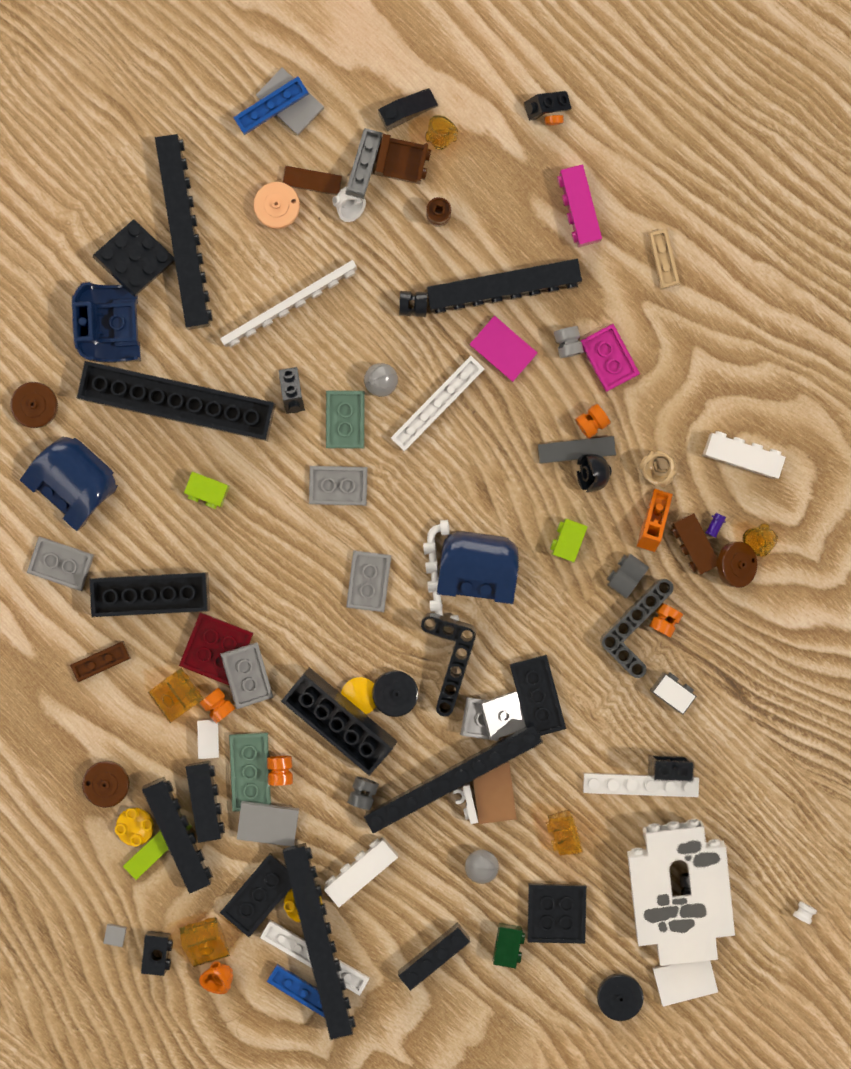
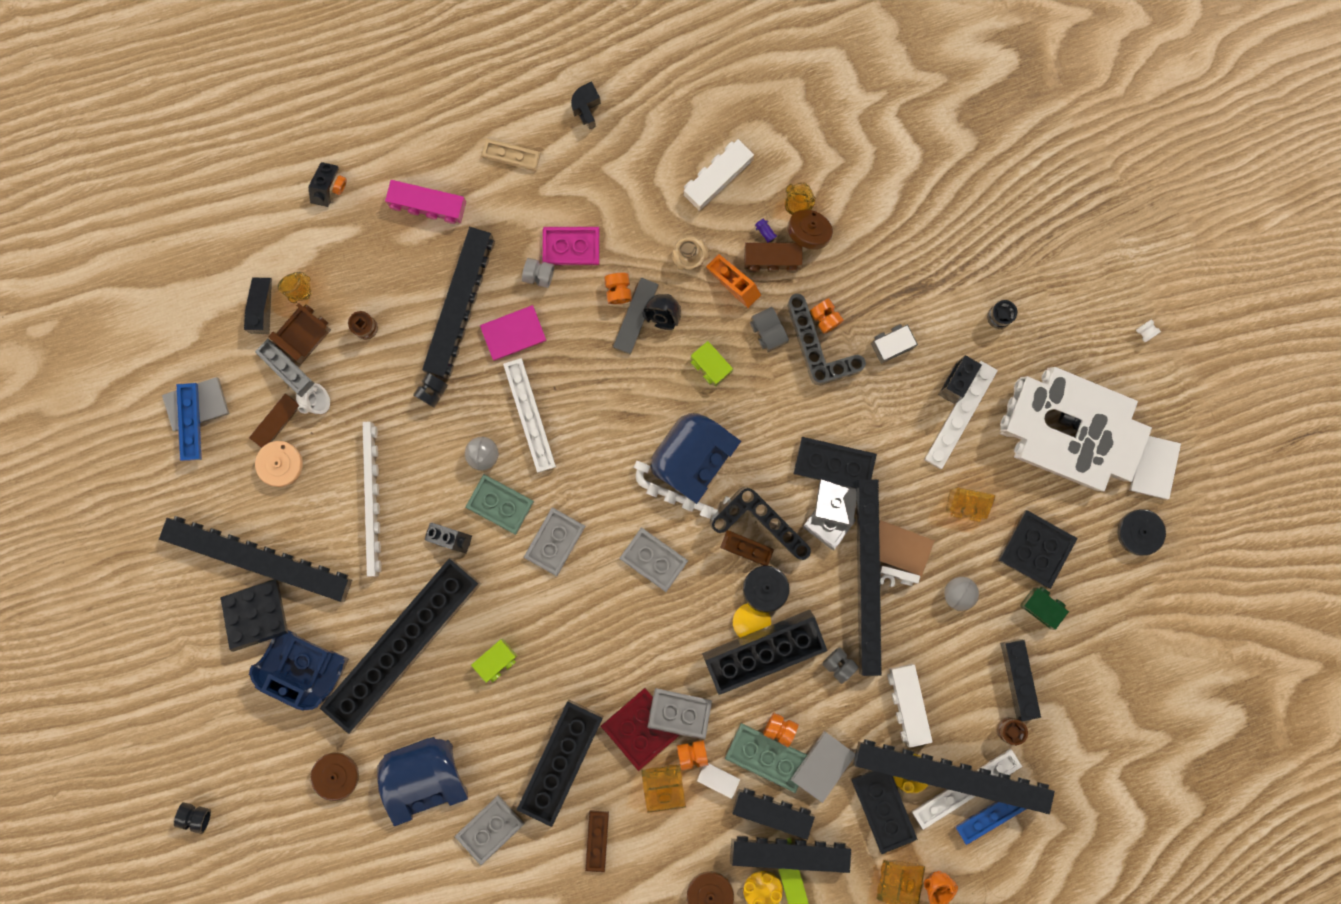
camera: 55 degrees left, 5 degrees down
(385, 971) = (1012, 731): none -> reddish brown wheel
(421, 658) = (747, 548): none -> reddish brown tile
(747, 297) = (583, 100): none -> black brick
(750, 775) = (1002, 314): none -> black wheel

